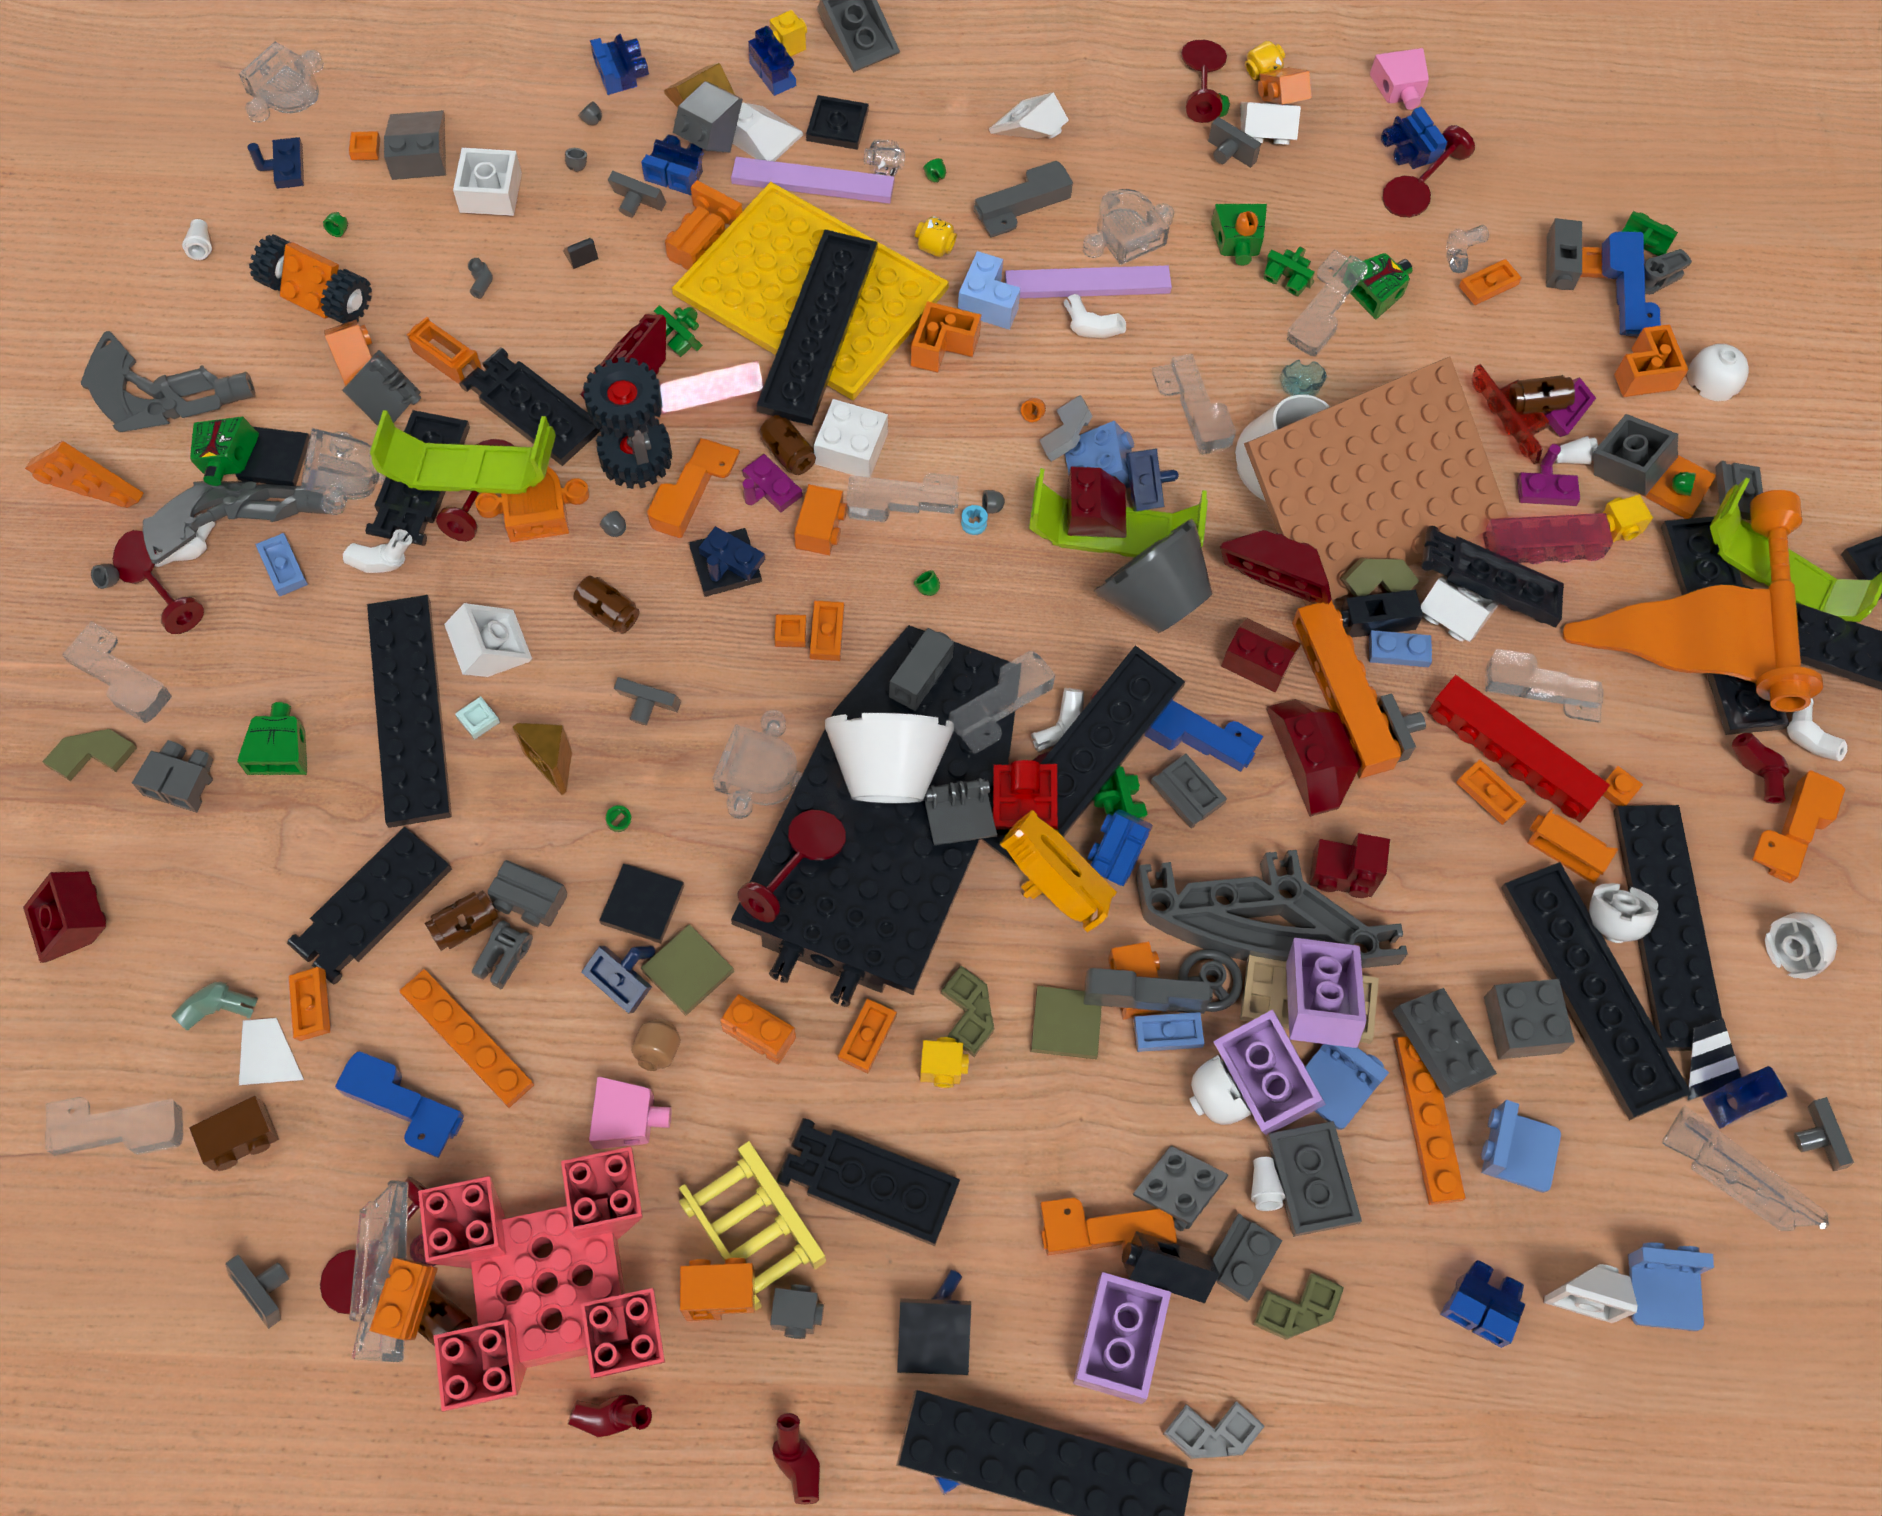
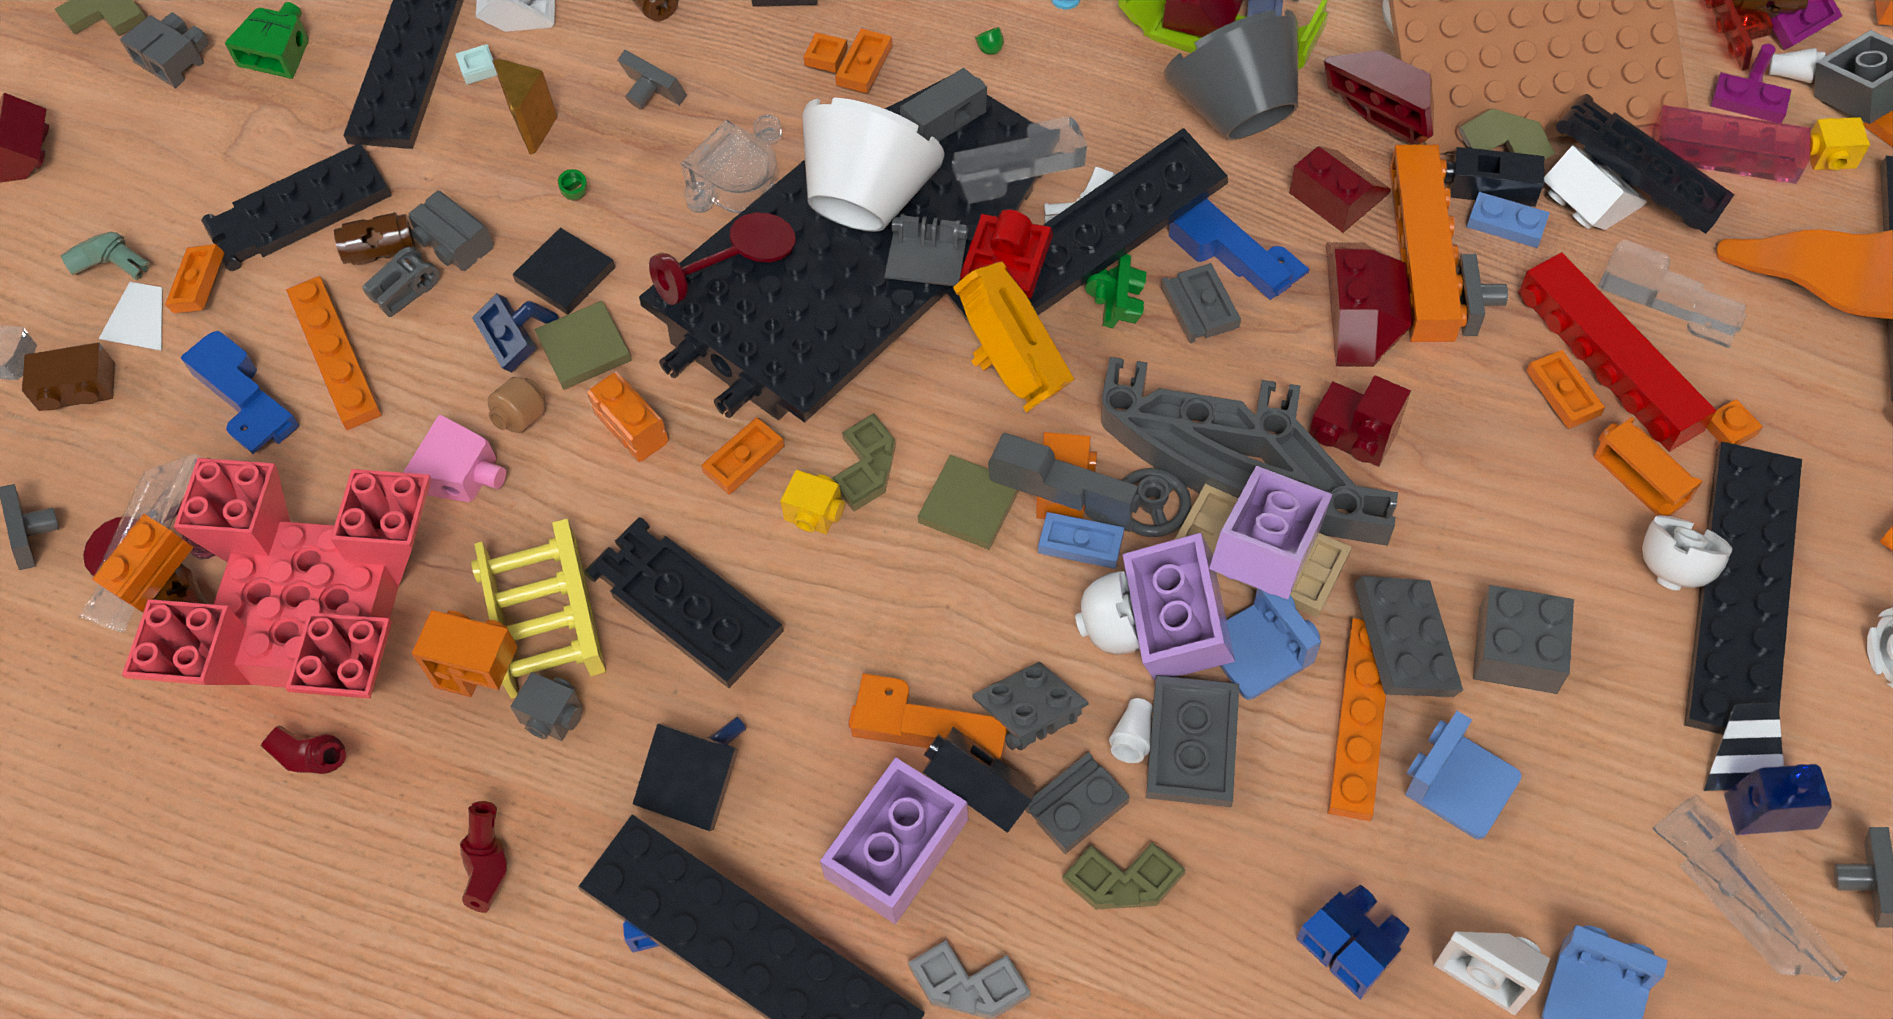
camera: 25 degrees right, 5 degrees down
(1120, 846) = (1095, 333): blue brick -> none
(1596, 991) = (1623, 637): black plate -> none

